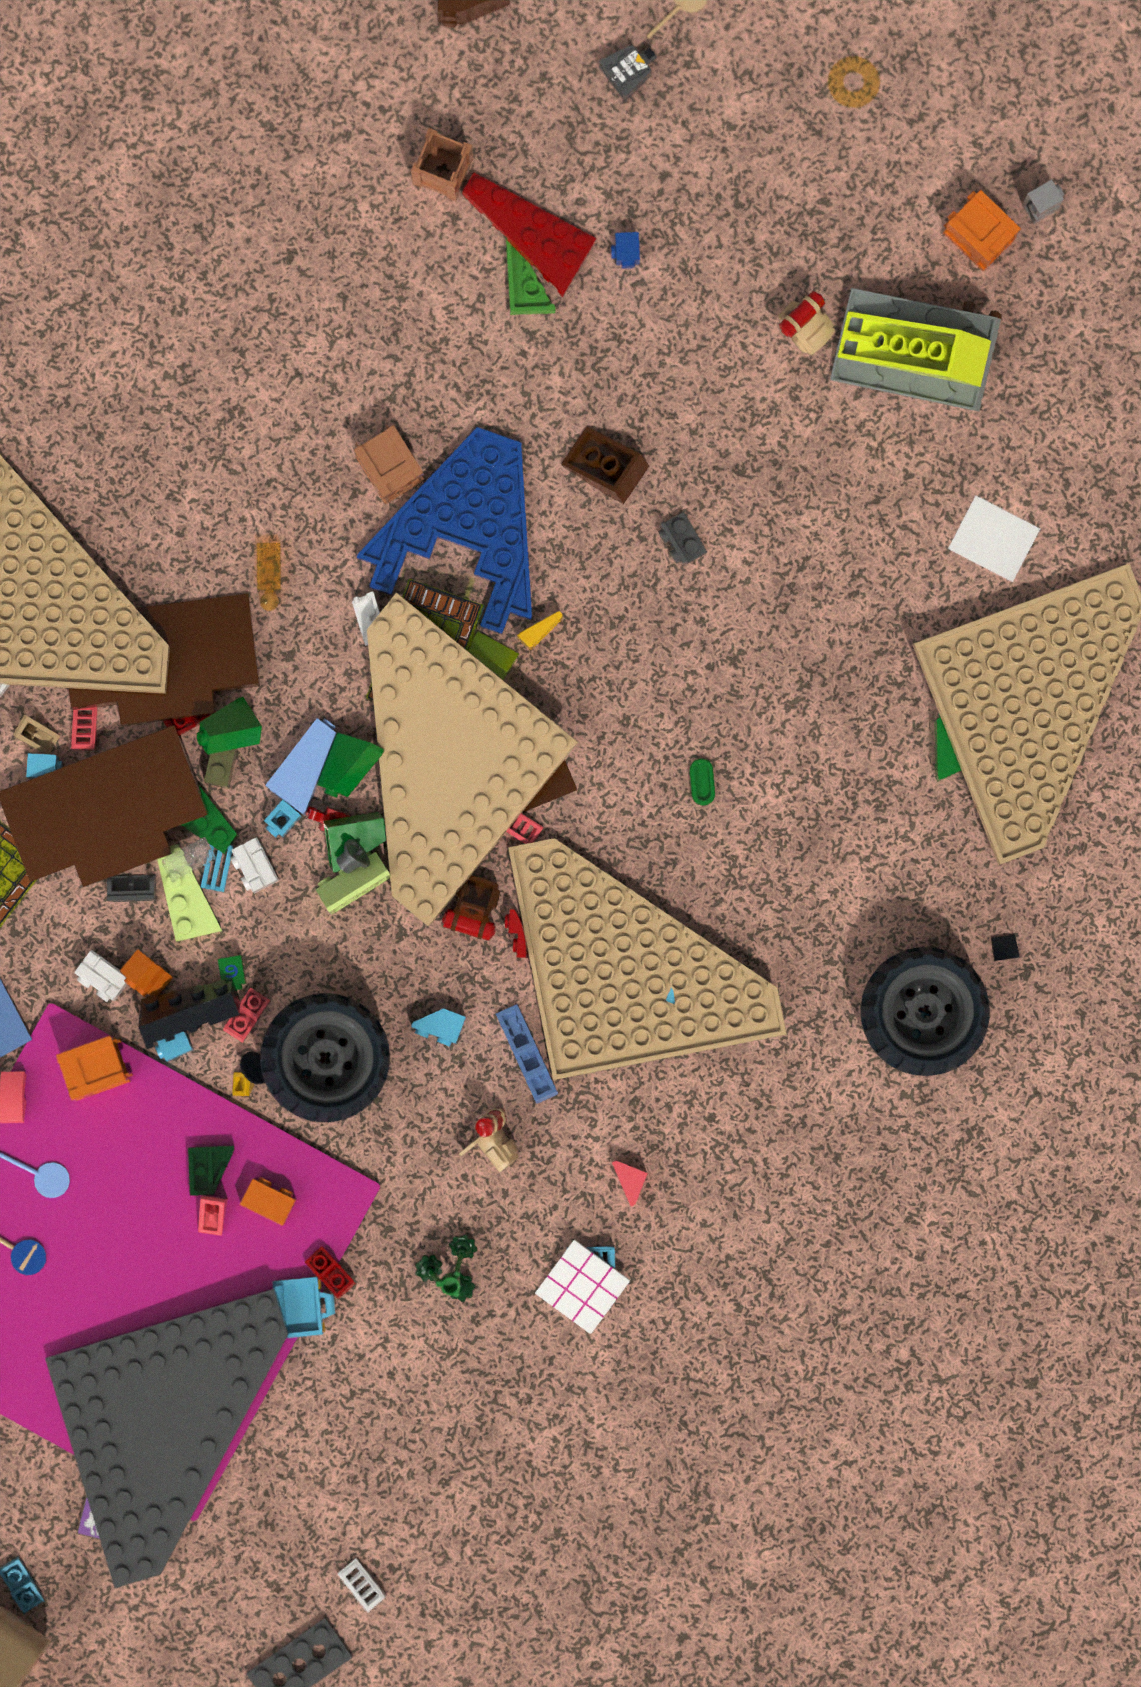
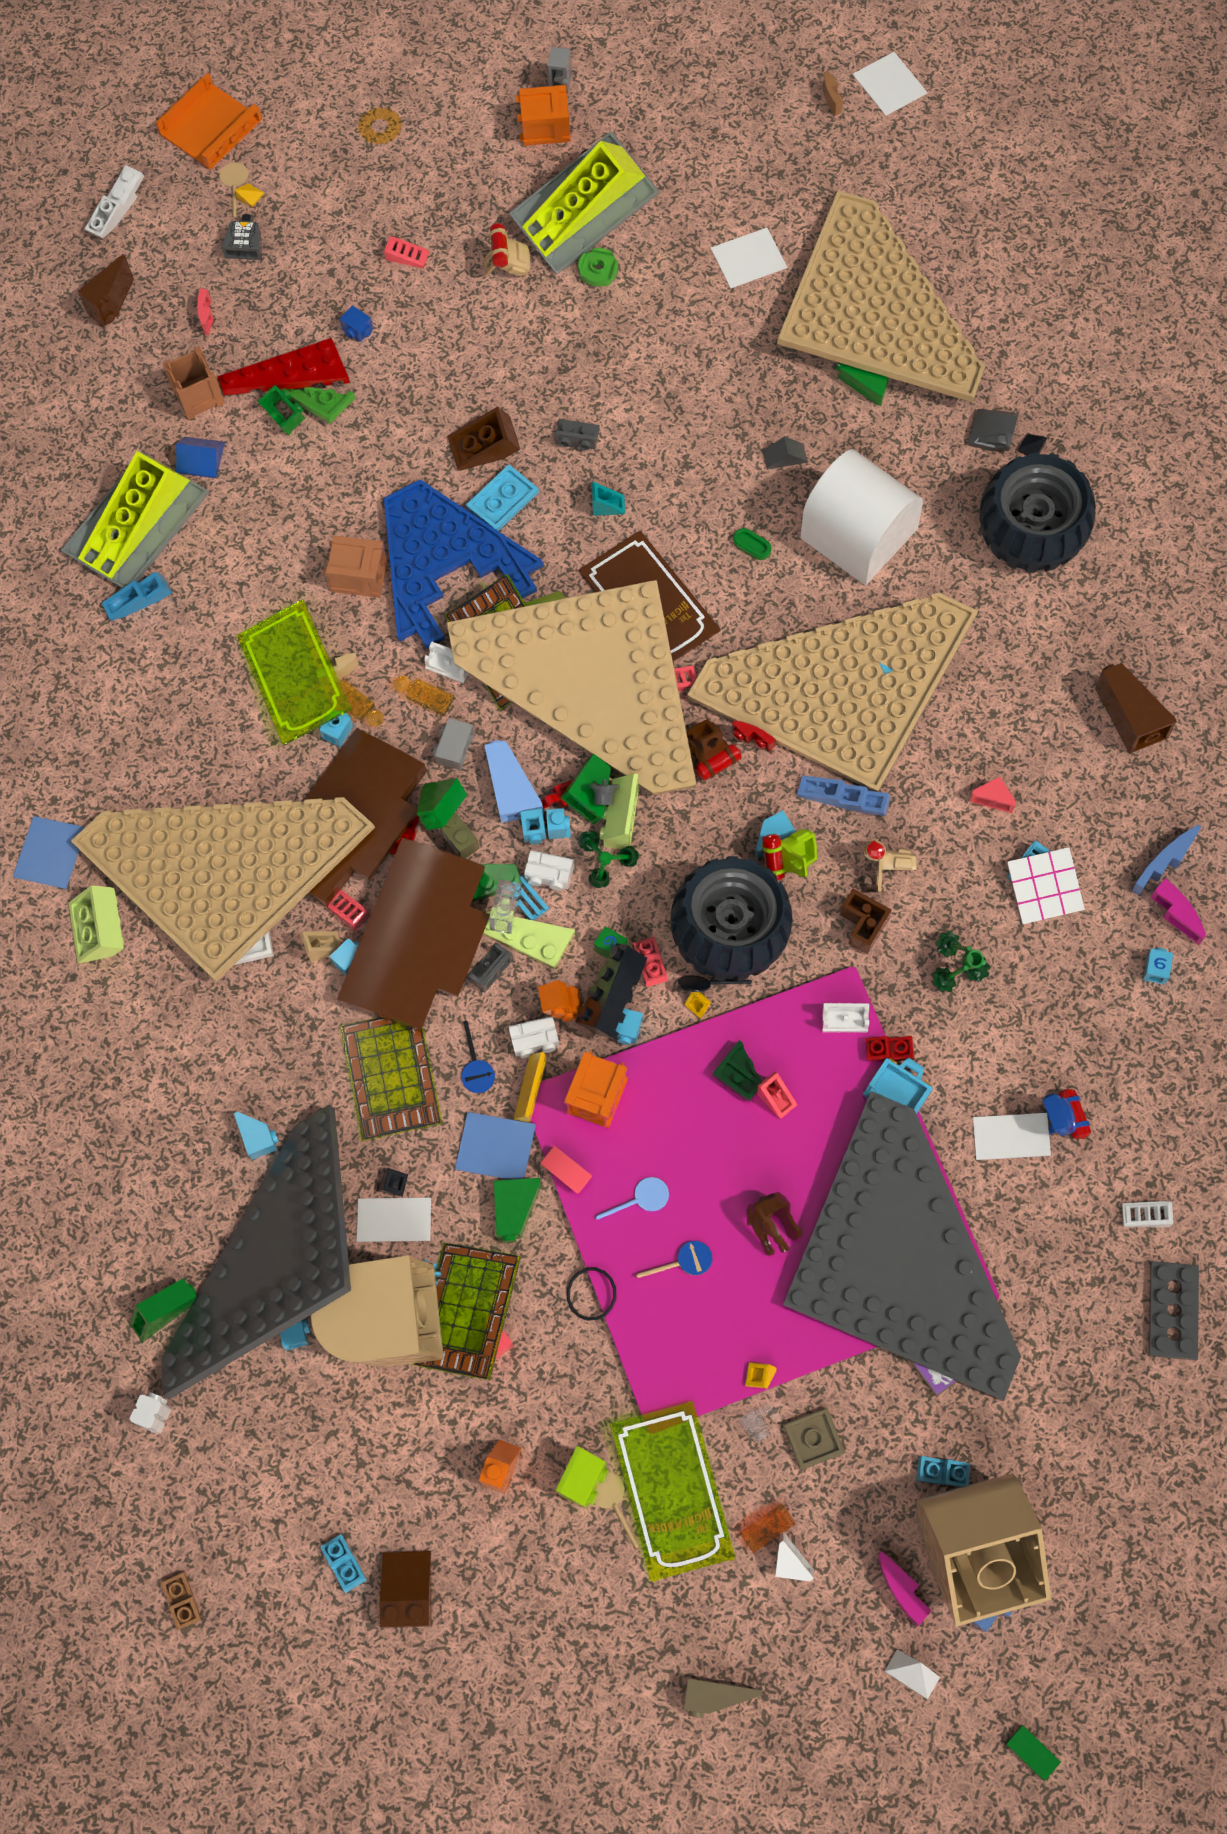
camera: 40 degrees left, 15 degrees down
(36, 956) = (477, 1075): none -> blue piece
(56, 1010) = (530, 1087): none -> yellow slope
(104, 1283) = (760, 1220): none -> reddish brown piece
(209, 298) = (137, 596): none -> dark azure slope
(233, 577) = (337, 729): none -> medium azure brick
(249, 497) = (293, 672): none -> clear neon green piece
(268, 1201) = (801, 1048): orange brick -> none
(278, 229) = (132, 515): none -> piece
(285, 911) = (600, 877): none -> dark green plant
(294, 533) = (345, 664): none -> tan slope
(300, 689) = (454, 743): none -> light grey brick
(301, 838) = (558, 824): none -> medium azure brick
(325, 624) = (425, 694): none -> clear yellow plate
(325, 1216) = (845, 1017): none -> white hinge
(339, 1427) = (1011, 1136): none -> white window
(347, 764) = (535, 749): green slope -> none
(385, 227) = (198, 456): none -> blue slope
(387, 1456) = (1066, 1114): none -> blue piece
(430, 1055) = (790, 854): none -> lime piece
(430, 1166) = (868, 916): none -> reddish brown brick
(480, 259) = (273, 397): none -> green window
(521, 107) = (204, 311): none -> coral slope
(533, 635) = (555, 570): yellow slope -> none
(564, 529) = (502, 498): none -> medium azure plate
(586, 1433) = (1158, 966): none -> medium azure brick
(590, 707) = (639, 562): none -> reddish brown piece
(639, 619) = (606, 501): none -> teal slope
(650, 1413) = (1179, 911): none -> dark pink slope
(681, 29) = (249, 194): none -> yellow slope
(699, 1370) = (1170, 856): none -> medium blue slope
(737, 206) = (396, 256): none -> coral slope
(794, 861) = (859, 516): none -> white brick
(804, 1236) = (1133, 709): none -> reddish brown slope
(814, 738) = (784, 453): none -> dark grey slope
(873, 401) = (602, 276): none -> bright green plate
(992, 901) = (993, 429): none -> dark grey slope

